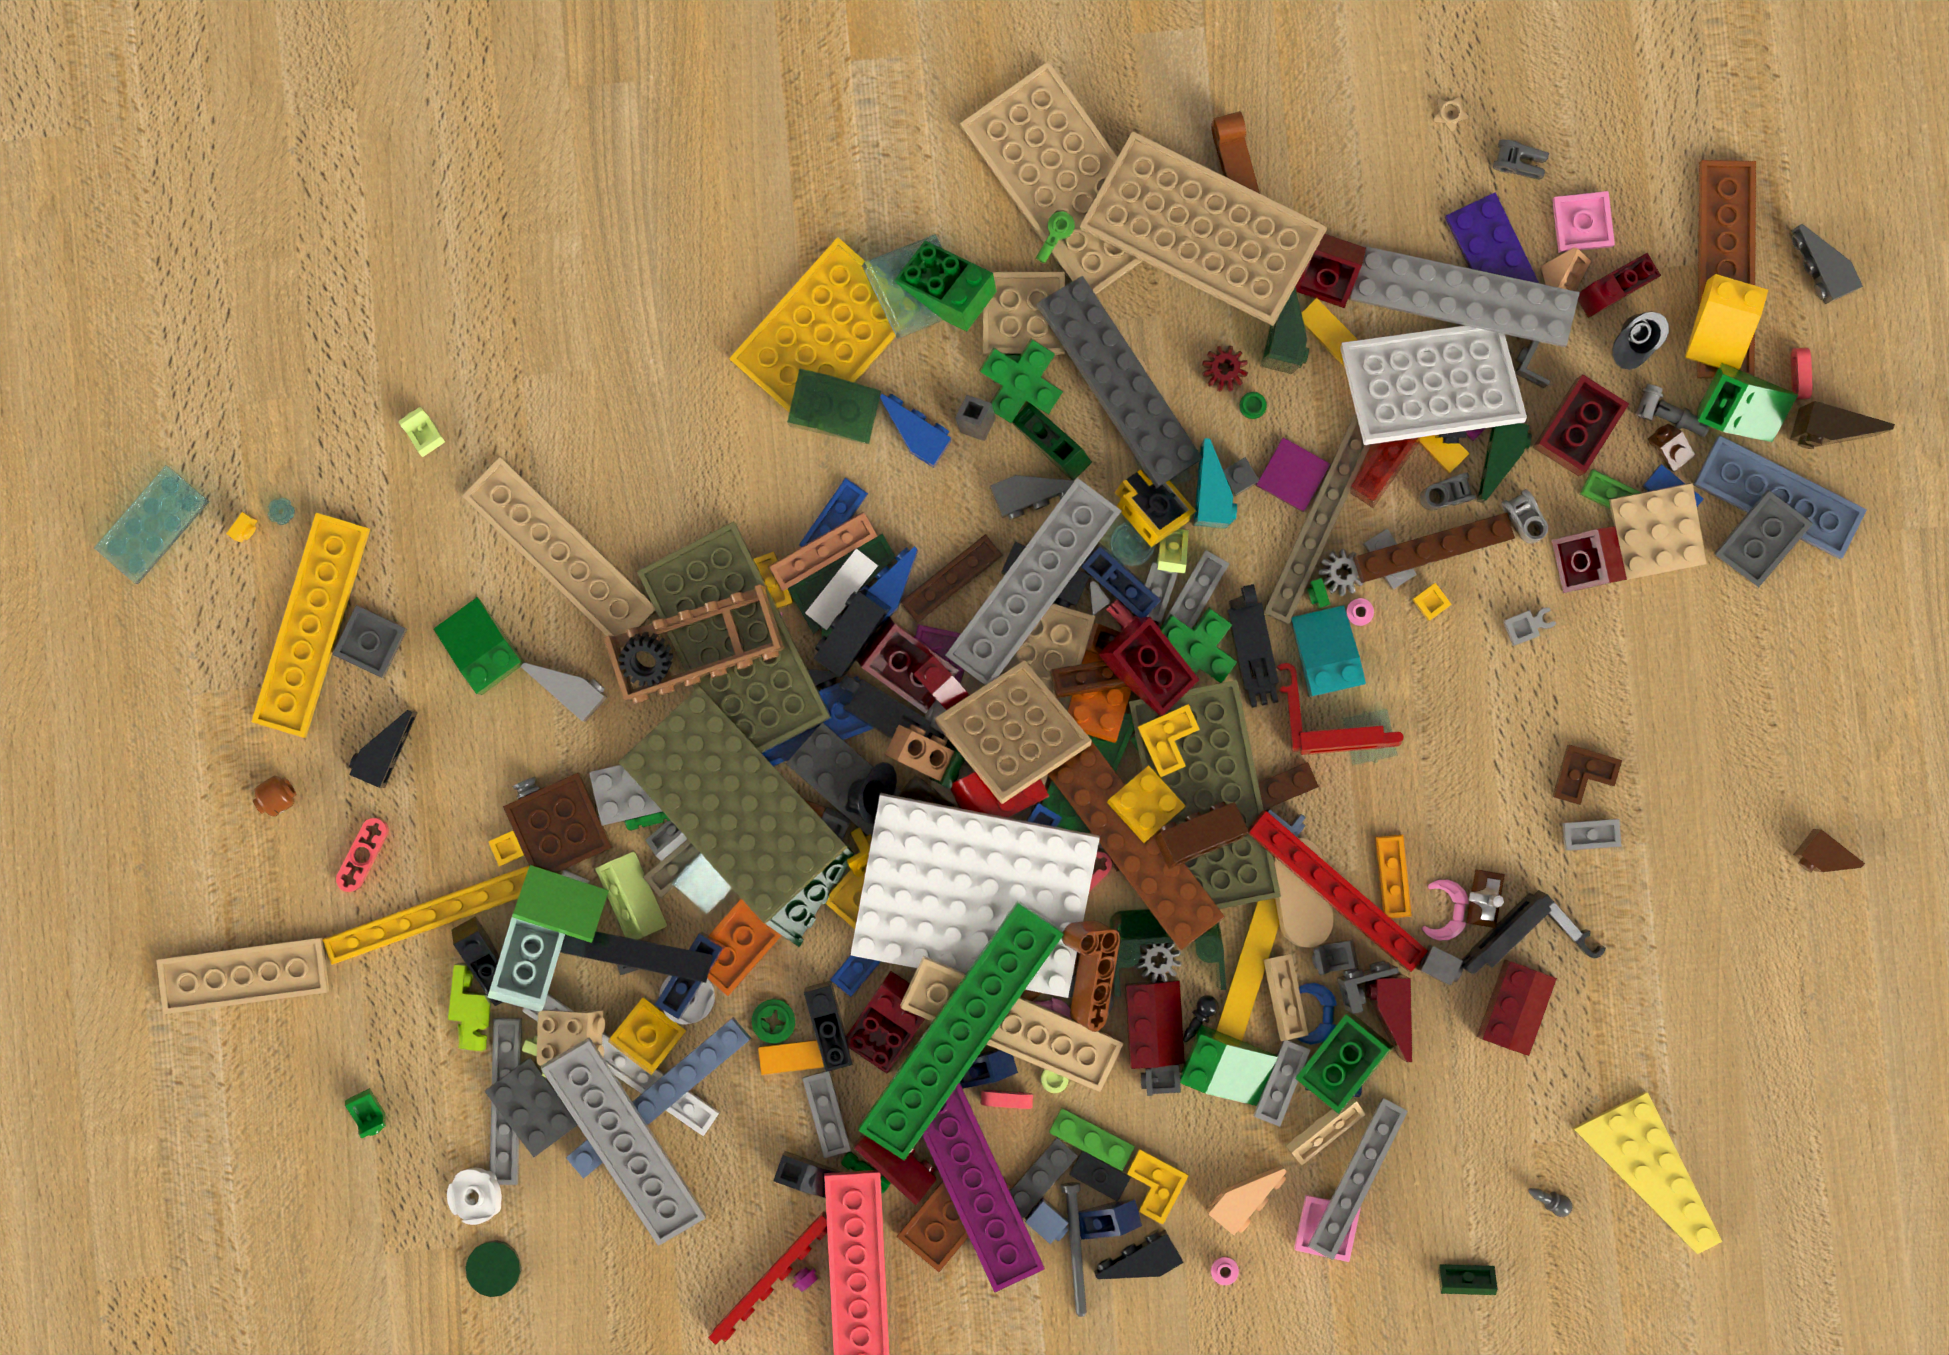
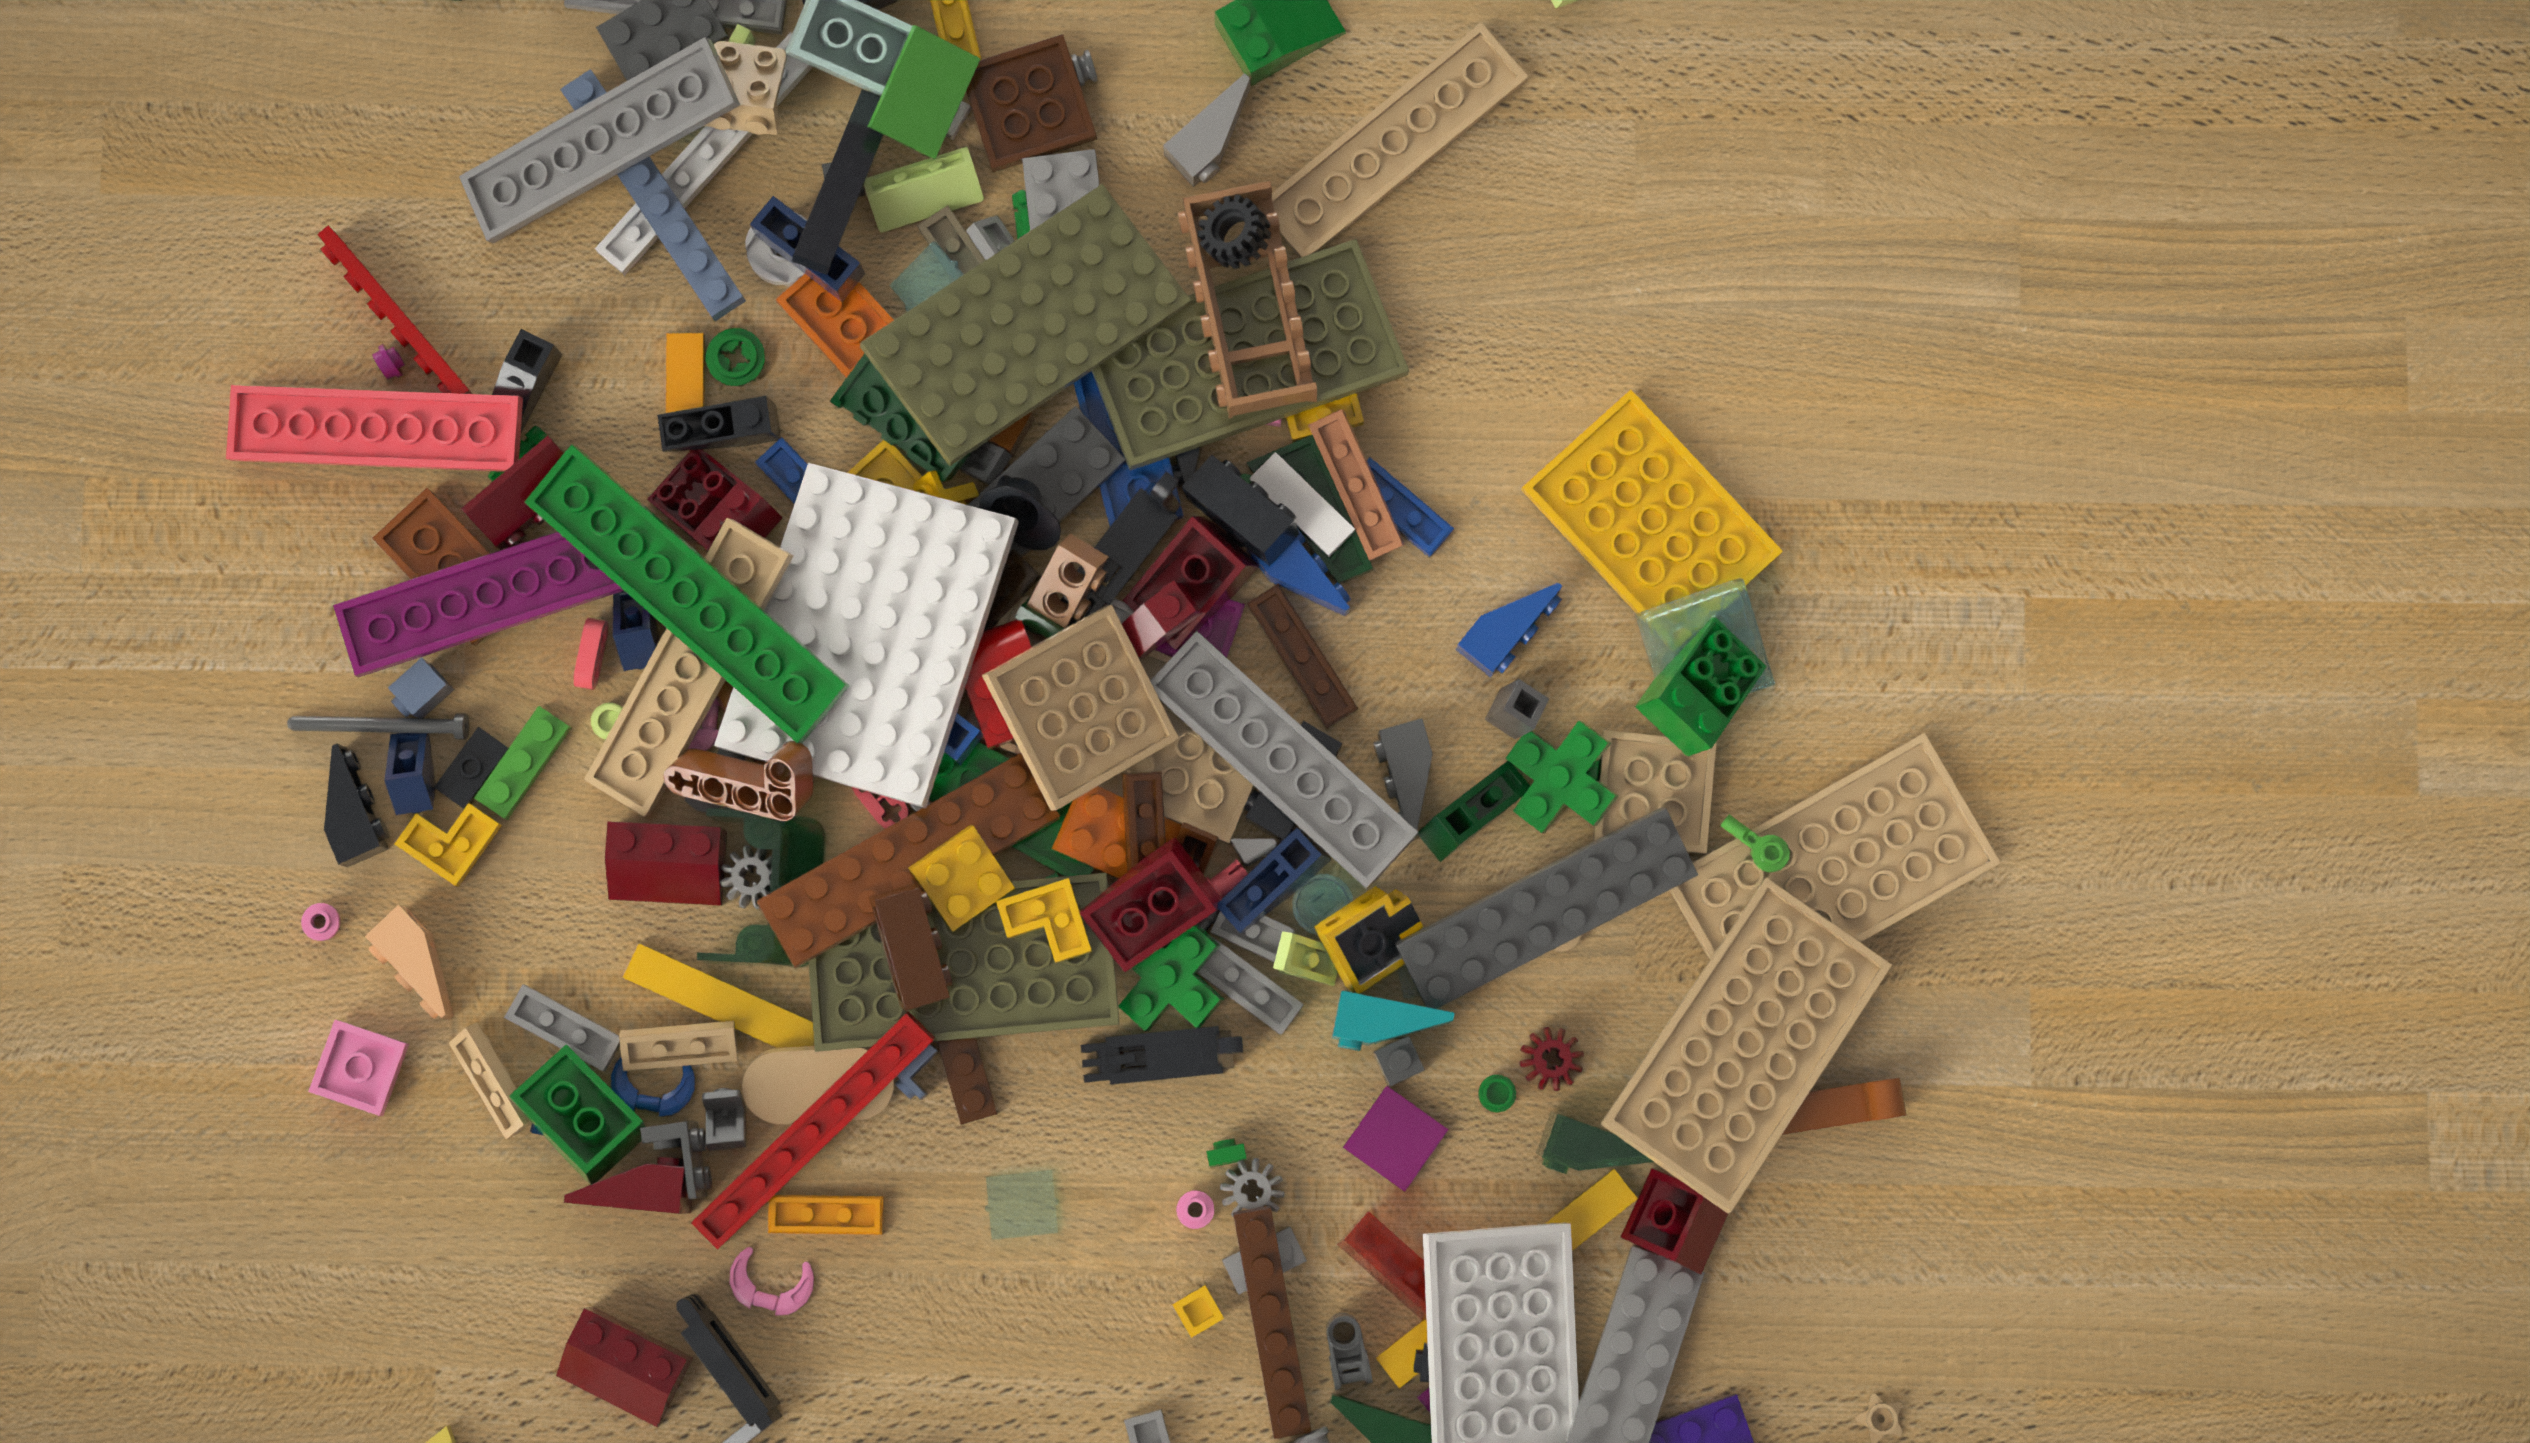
camera: 95 degrees right, 5 degrees down
(506, 848) = (1006, 32): yellow plate -> none
(646, 1036) = (735, 188): yellow plate -> none
(826, 1114) = (602, 413): light grey plate -> none
(833, 407) = (1550, 518): clear green slope -> none
(1042, 1175) = (482, 690): dark grey plate -> none
(1161, 1080) = (587, 863): dark grey bracket -> none
(1206, 1007) = (679, 936): black bar -> none
(1227, 1067) = (593, 954): slope -> none
(1318, 525) = (1318, 1162): dark tan plate -> none
(1327, 651) = (1145, 1157): teal slope -> none
(1331, 740) = (1021, 1147): red hinge -> none
(1357, 1179) = (418, 1114): light grey plate -> none
(1441, 965) = (694, 1265): flat silver brick -> none
(1467, 1279) = (261, 1253): dark green plate -> none
(1485, 898) = (779, 1338): piece -> none
(1558, 1204) = (346, 1394): dark grey bar -> none

